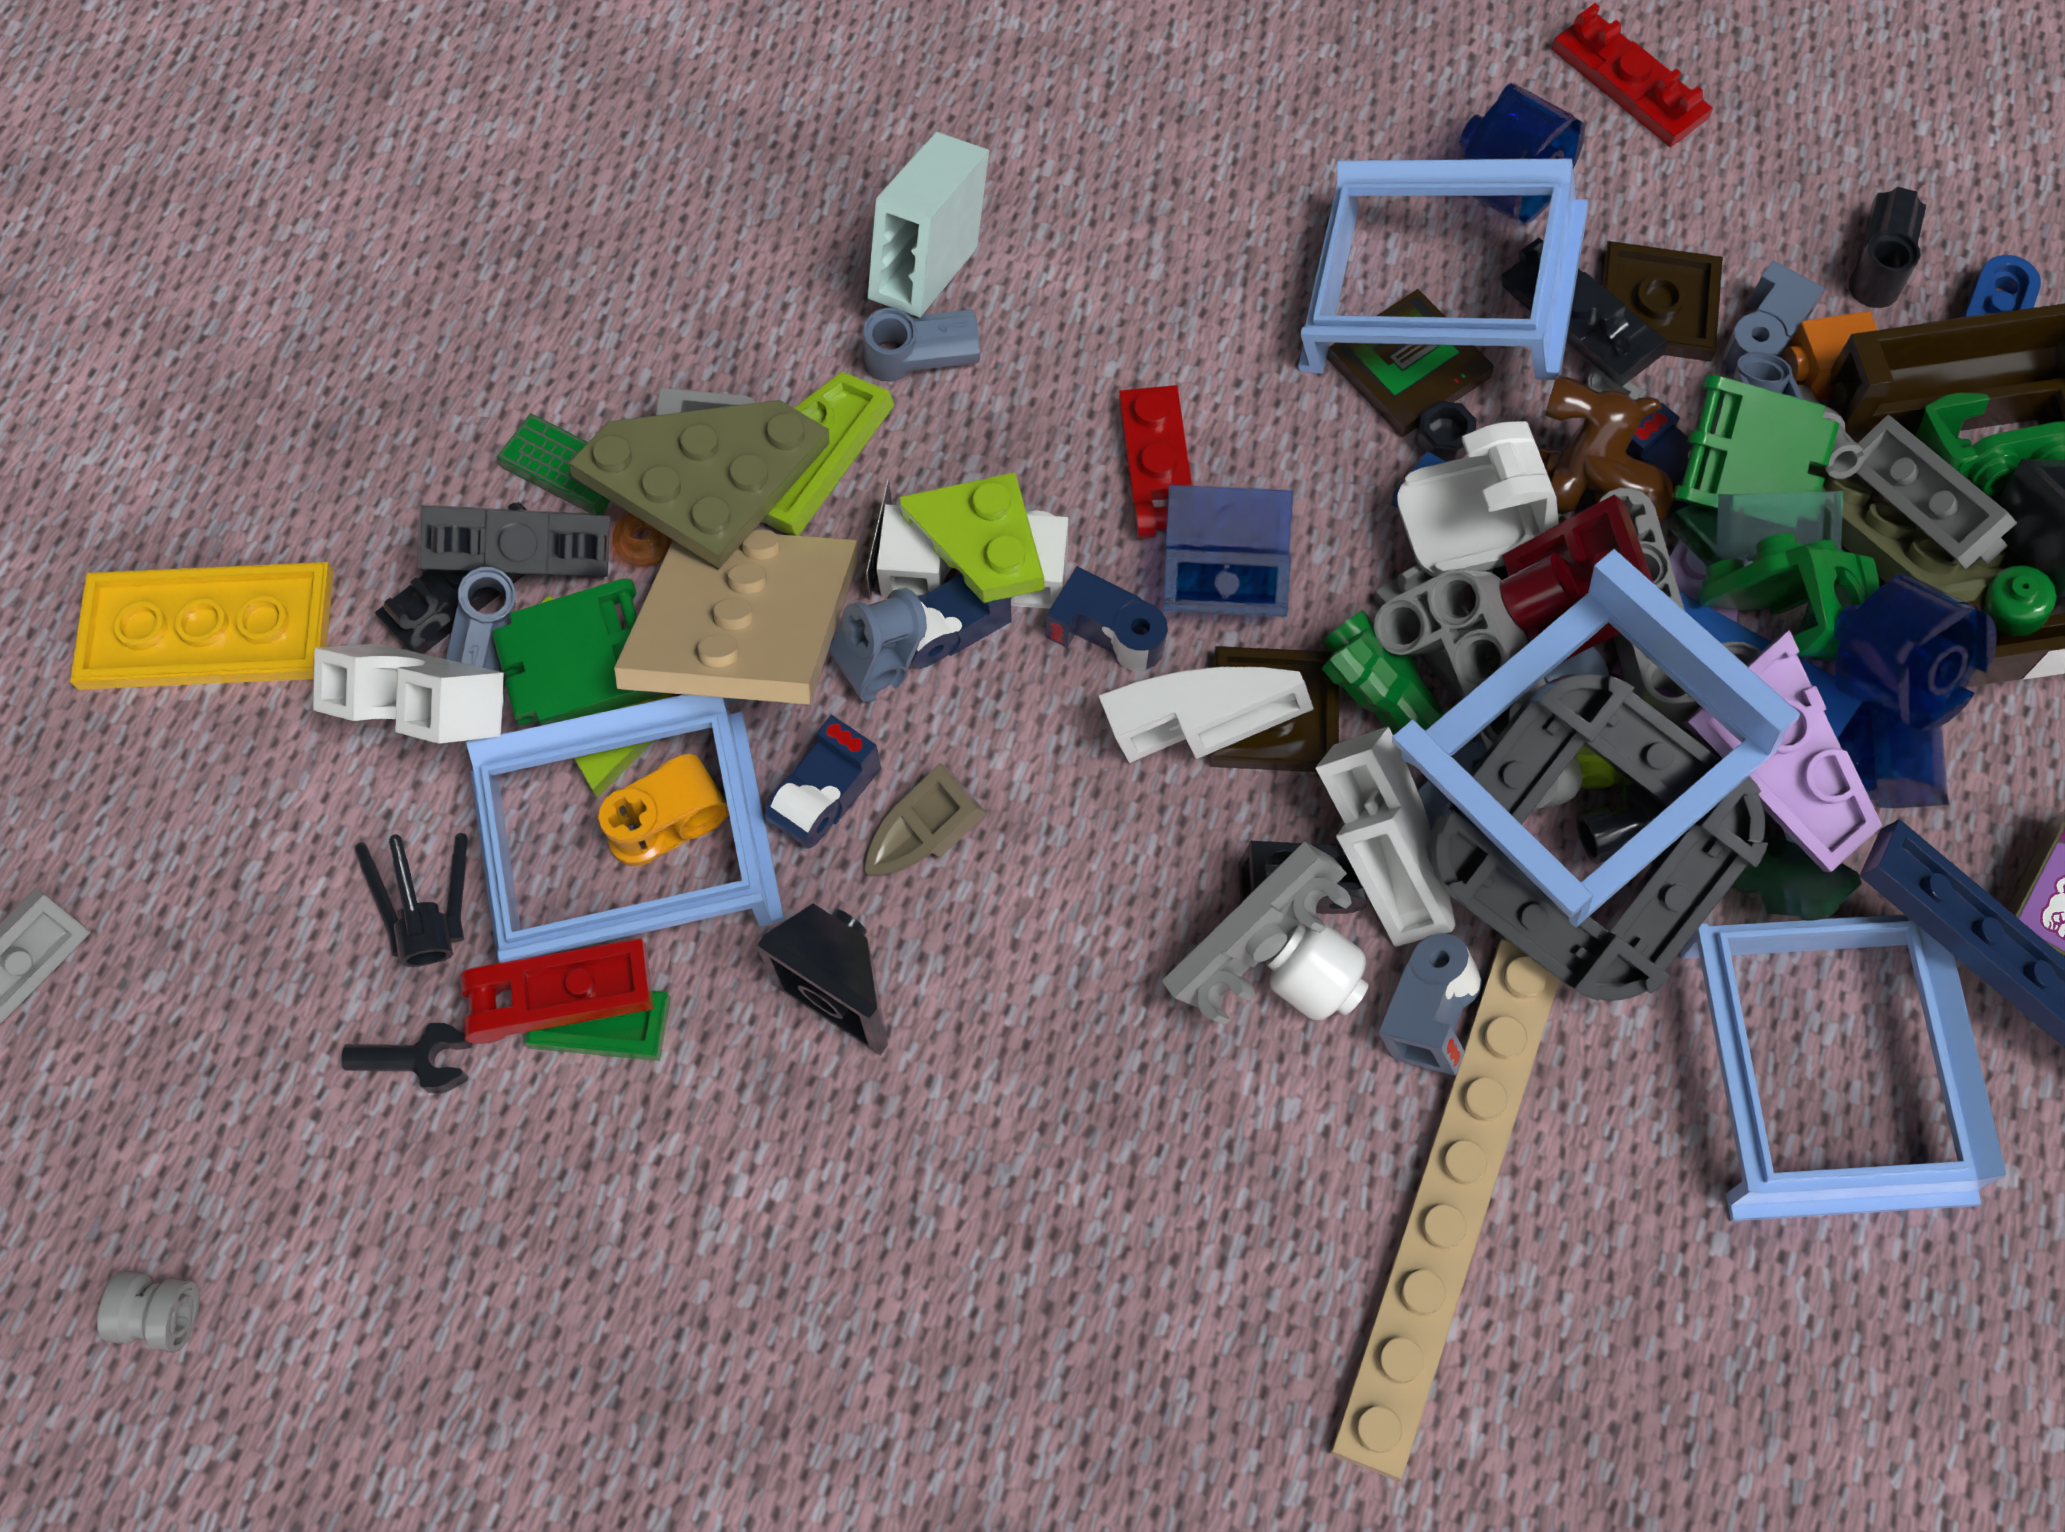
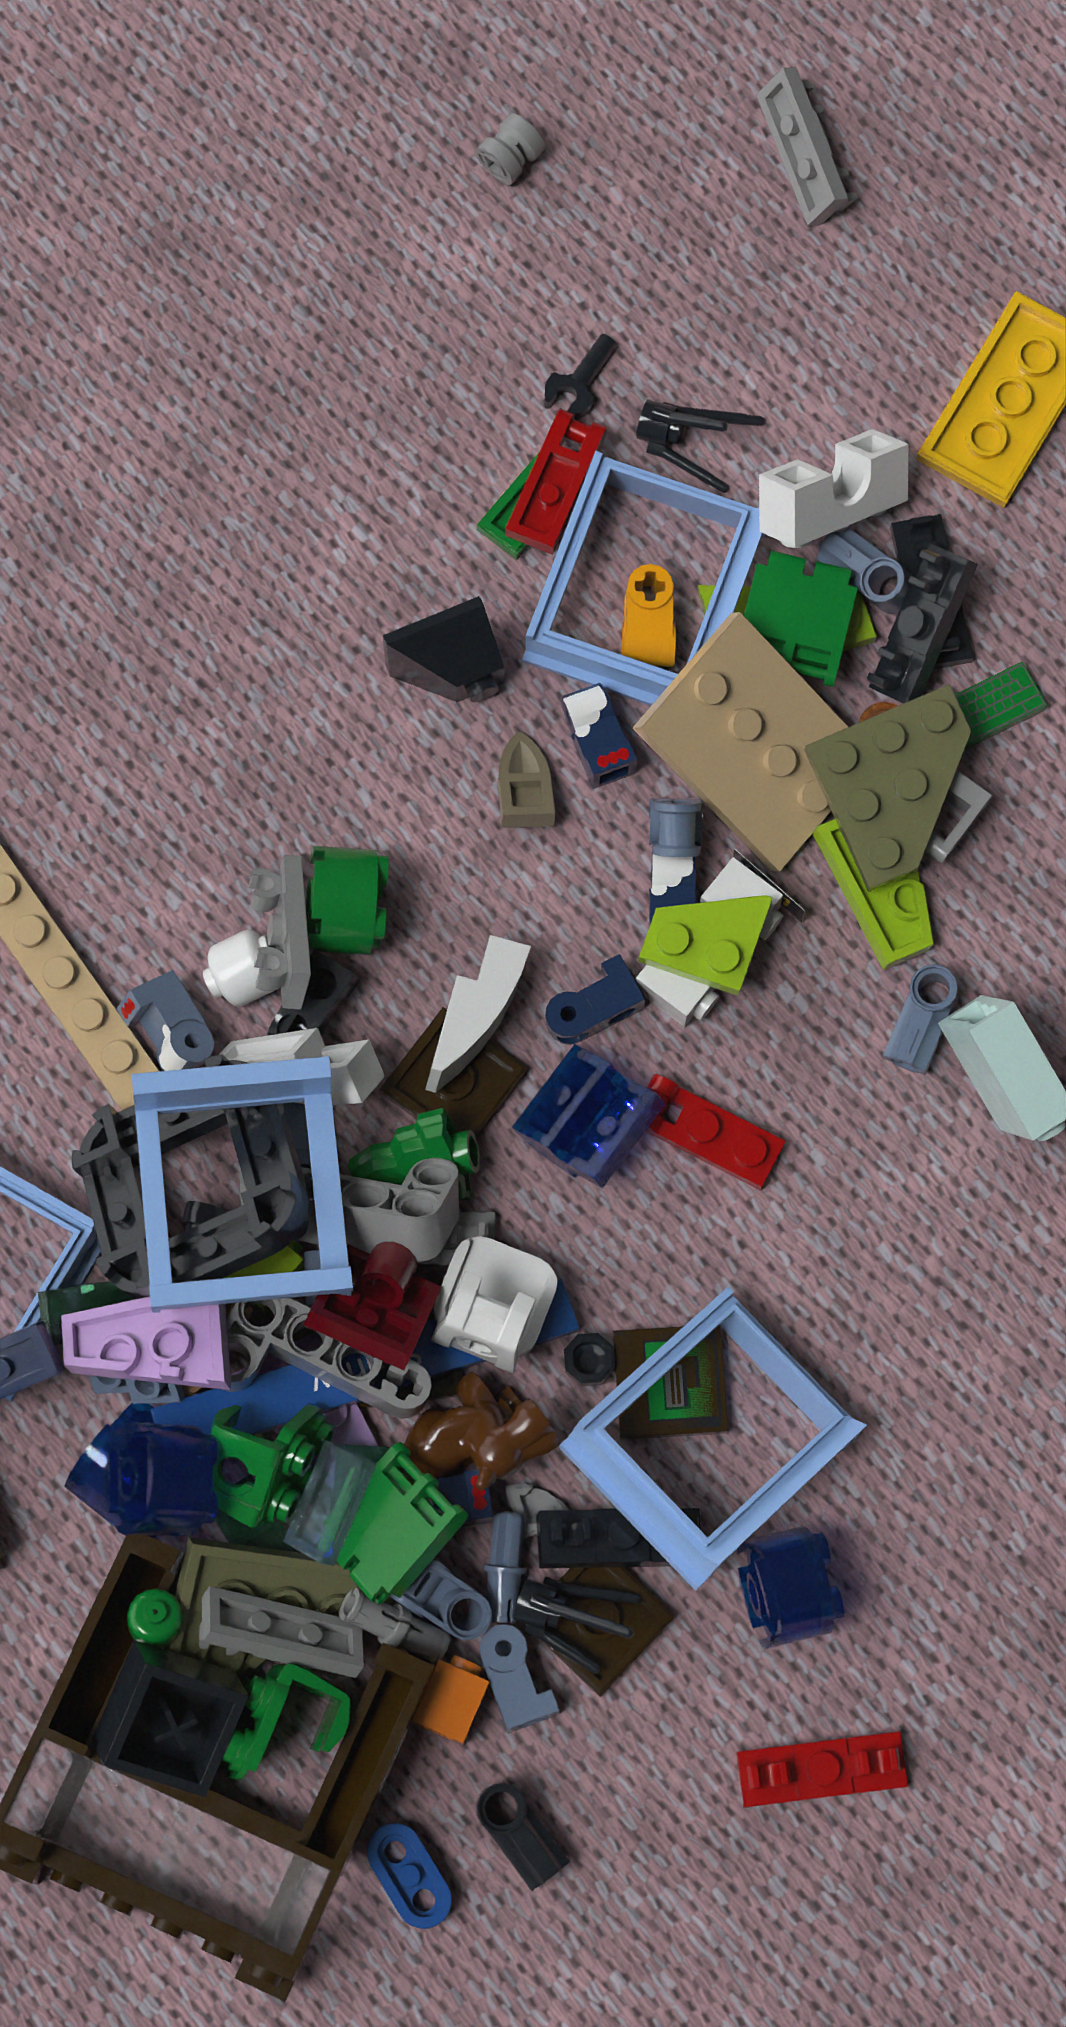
camera: 120 degrees right, 10 degrees up
(1172, 898) = (344, 898): none -> green brick
(1685, 381) = (505, 1565): none -> sand blue axle
(1697, 322) = (543, 1606): none -> black plant

